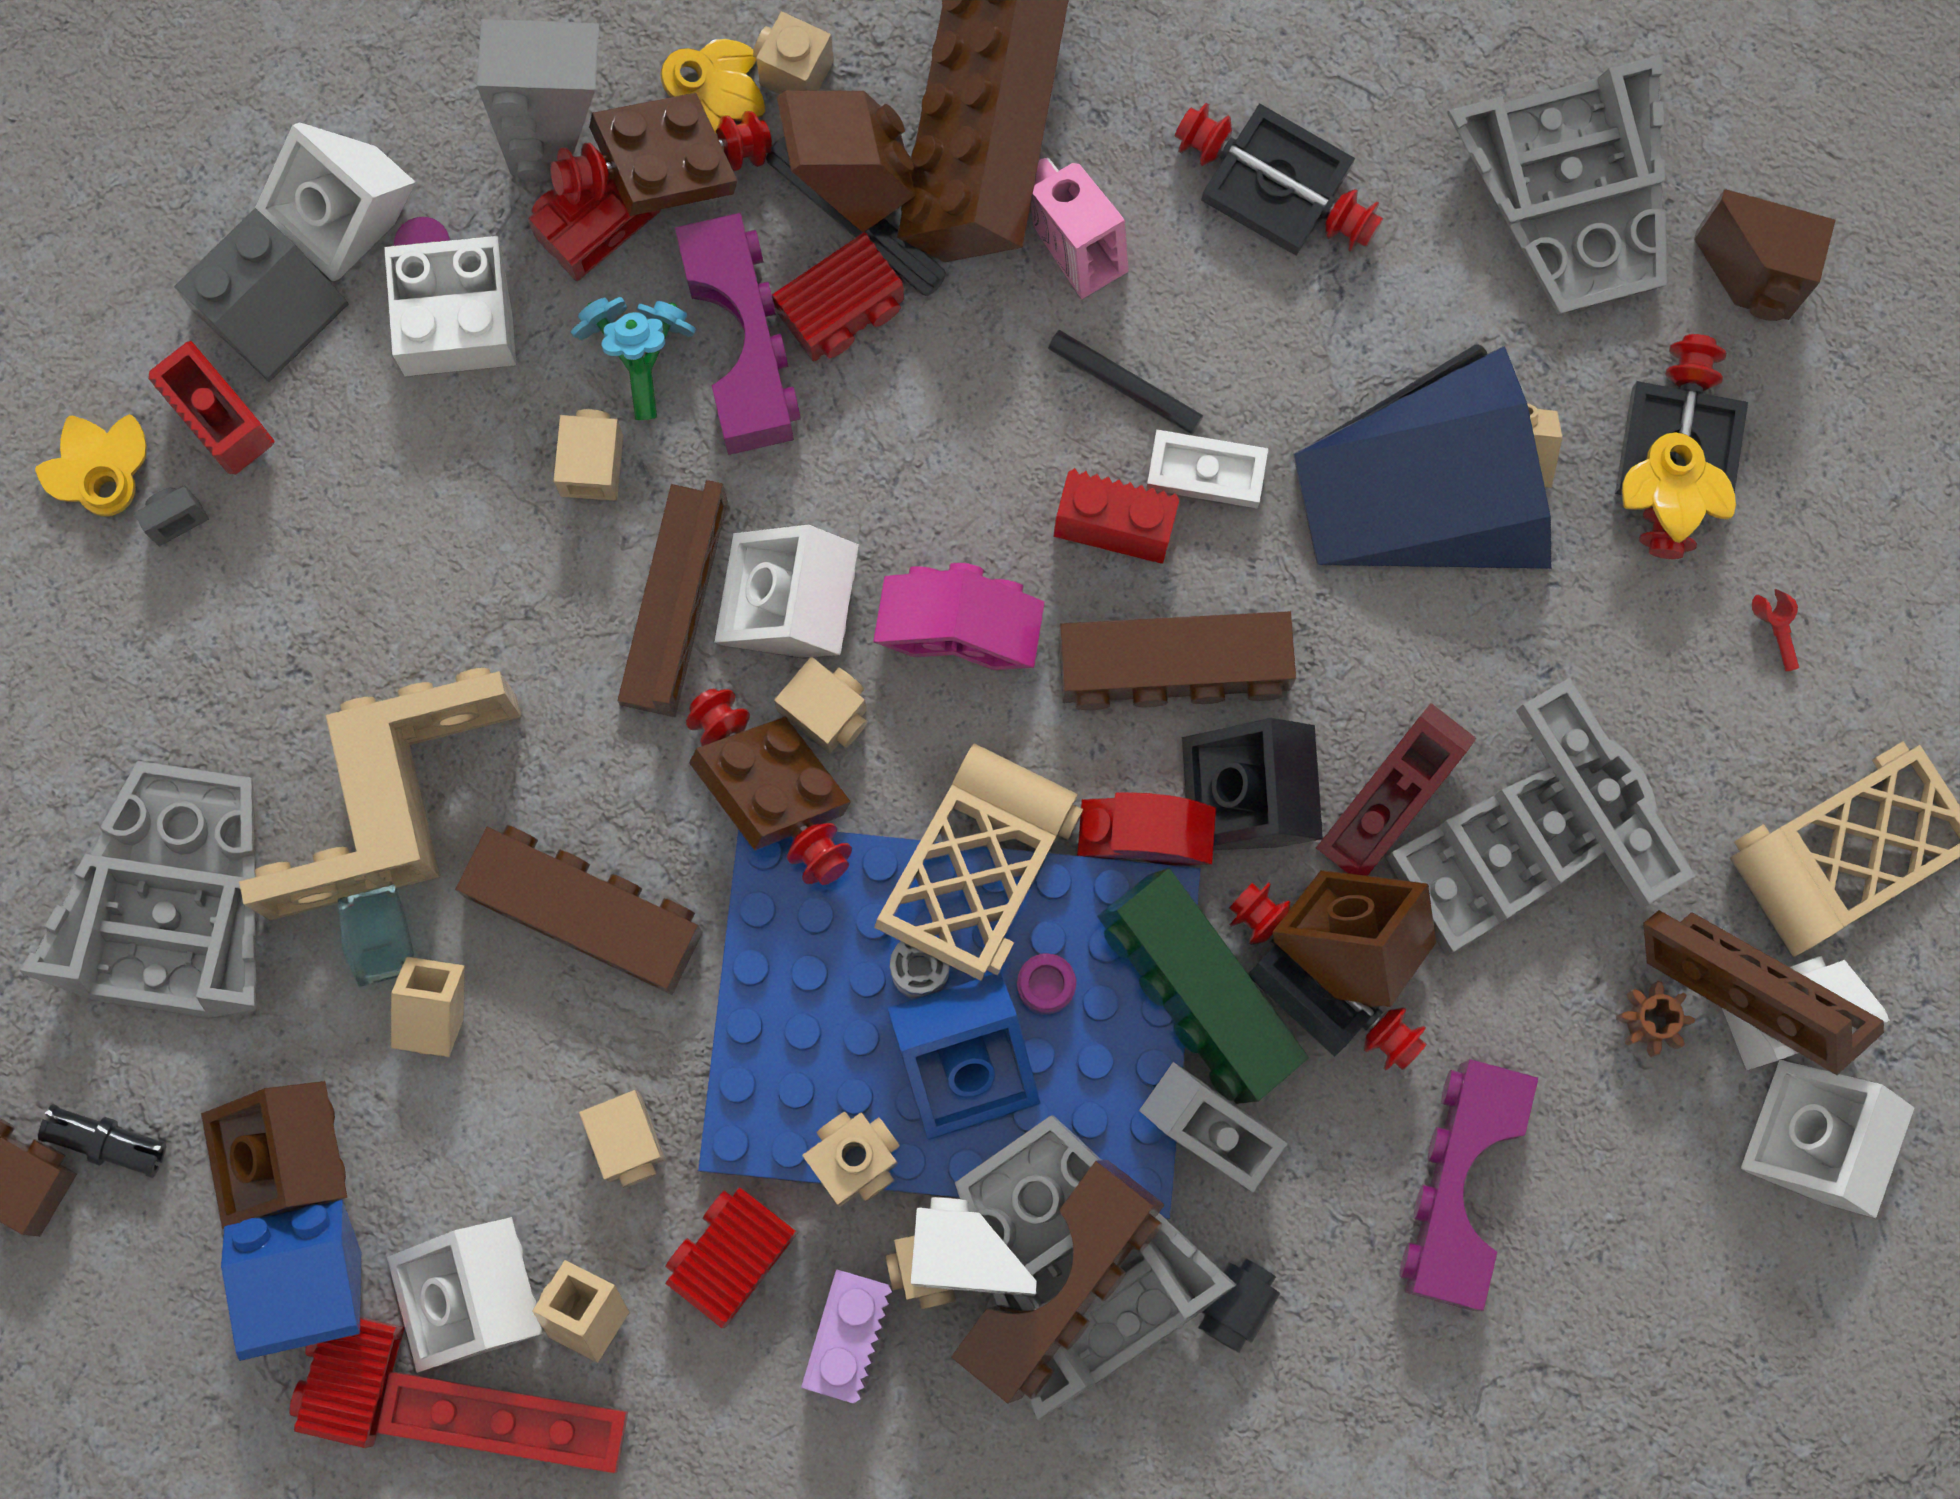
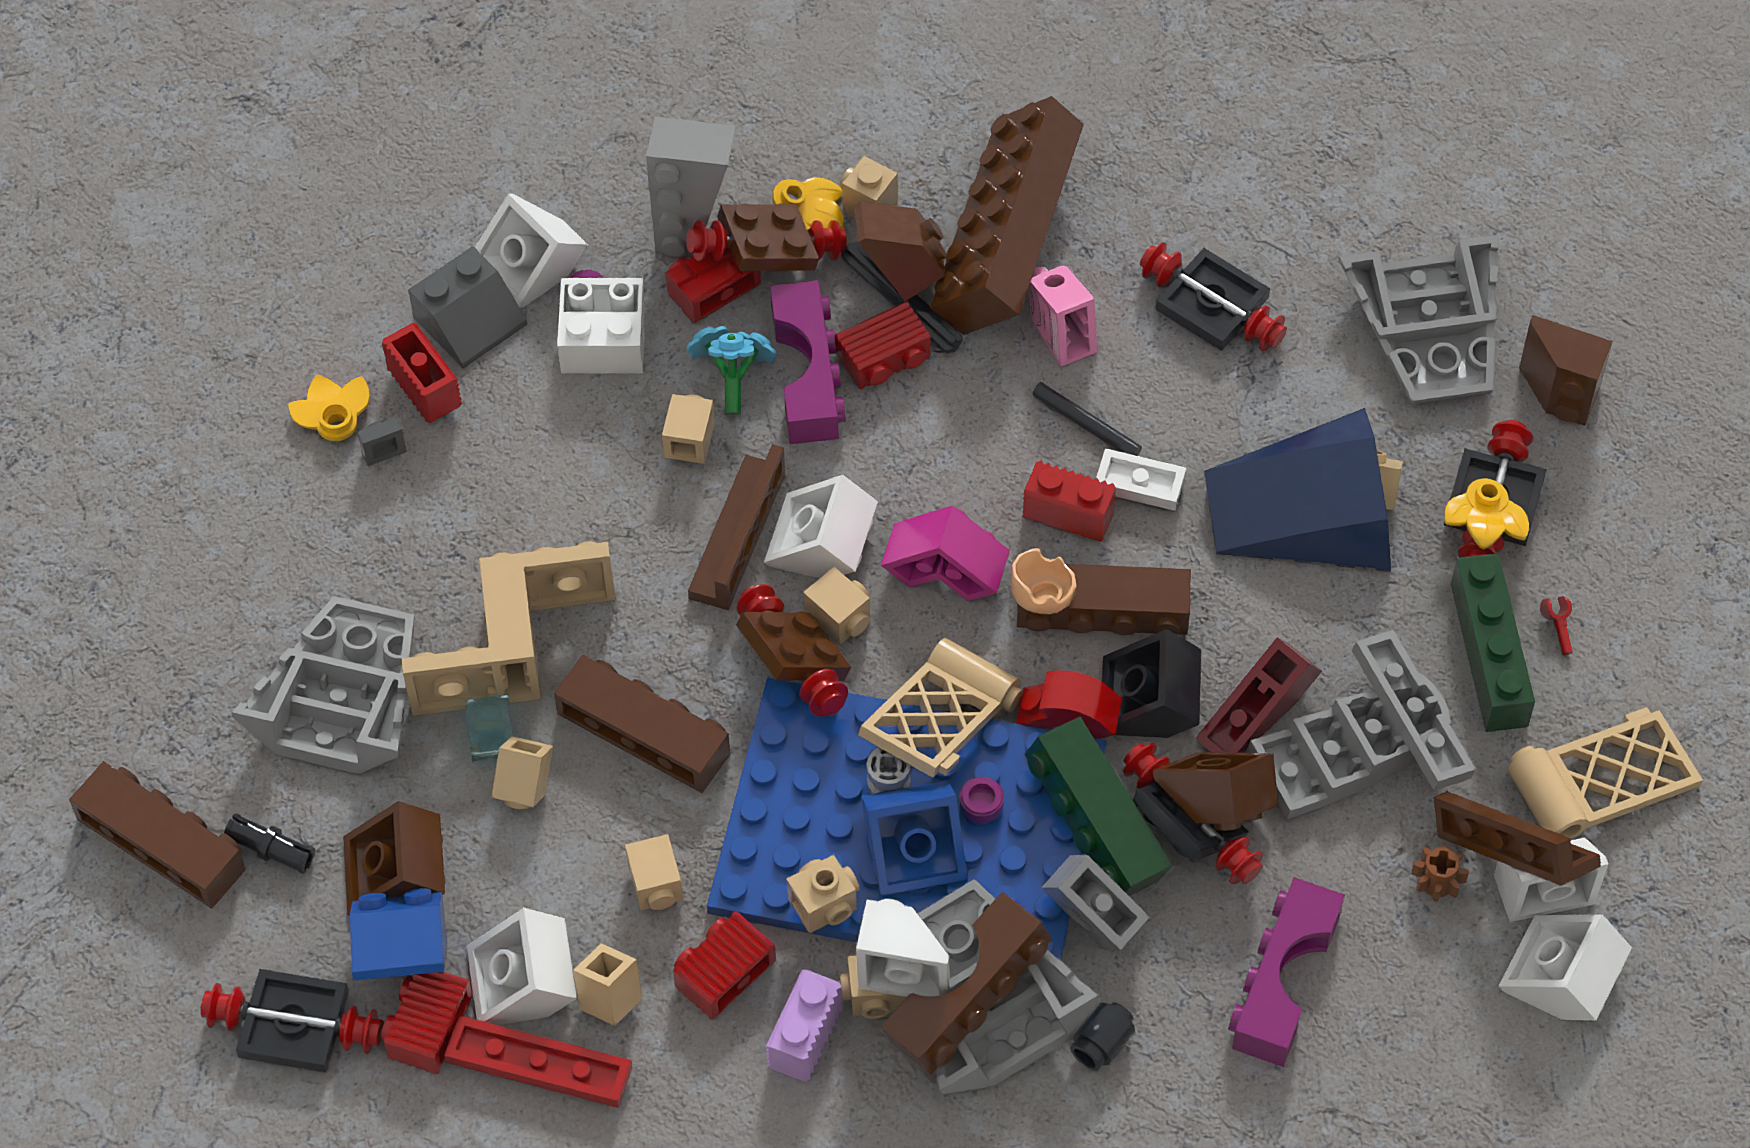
camera: 10 degrees right, 20 degrees down
(167, 1399) = (292, 1020): none -> black plate
(1097, 665) = (1042, 583): none -> light nougat hair
(1697, 672) = (1492, 642): none -> dark green brick

